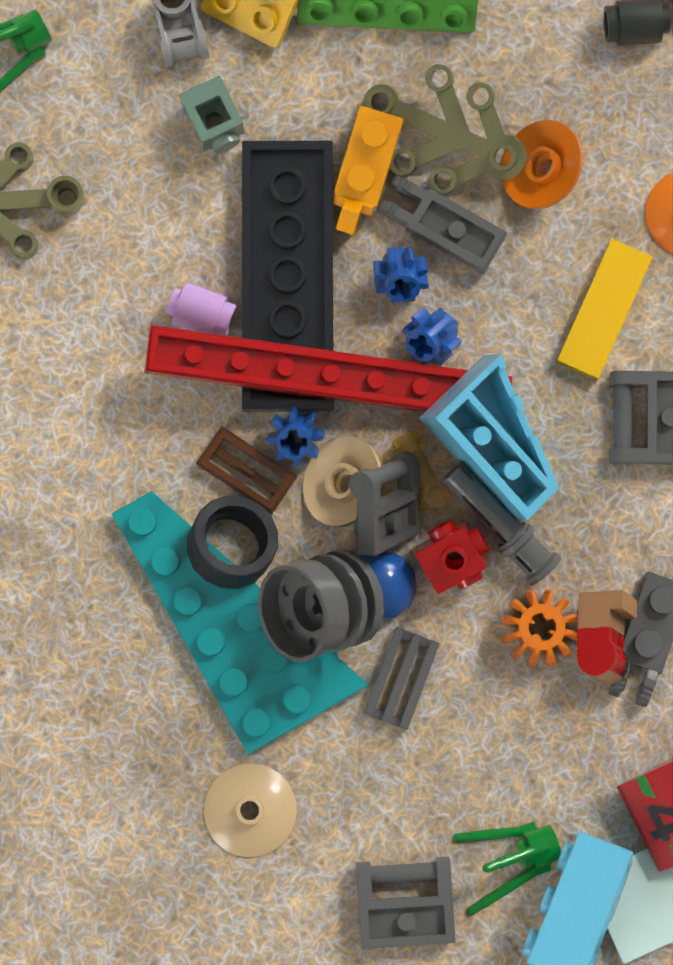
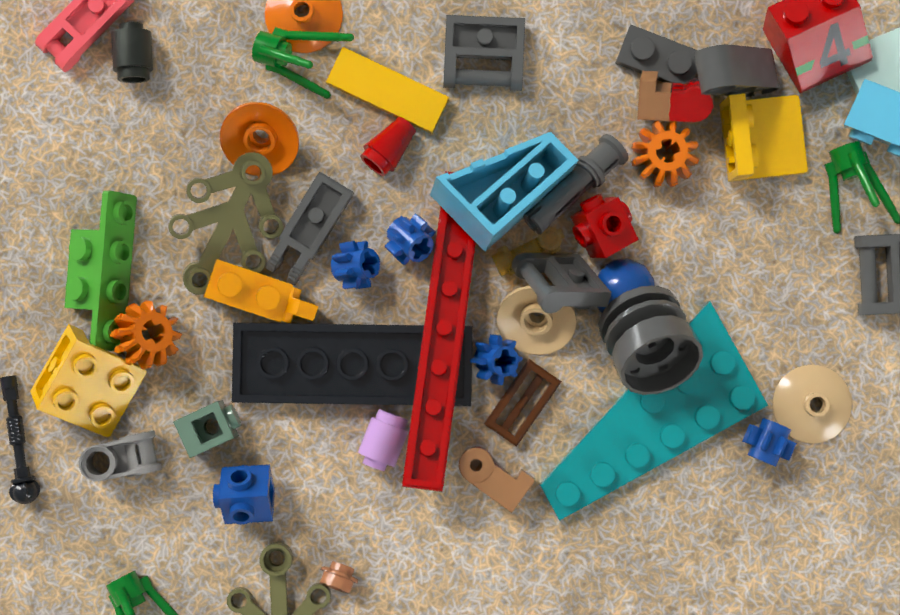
camera: 85 degrees left, 5 degrees up
(45, 265) = (338, 577): none -> nougat plate
(138, 158) = (245, 494): none -> blue brick
(165, 425) = (480, 470): none -> medium nougat leg
(204, 754) = (769, 442): none -> blue gear
(245, 512) = (575, 388): black tyre -> none
(300, 51) = (132, 341): none -> orange gear
(415, 641) = (734, 285): dark grey tile -> none
(538, 310) = (388, 147): none -> red cone
(563, 745) = (762, 137): none -> yellow bracket
(637, 703) = (736, 70): none -> dark grey beam
(642, 182) = (276, 53): none -> green plant

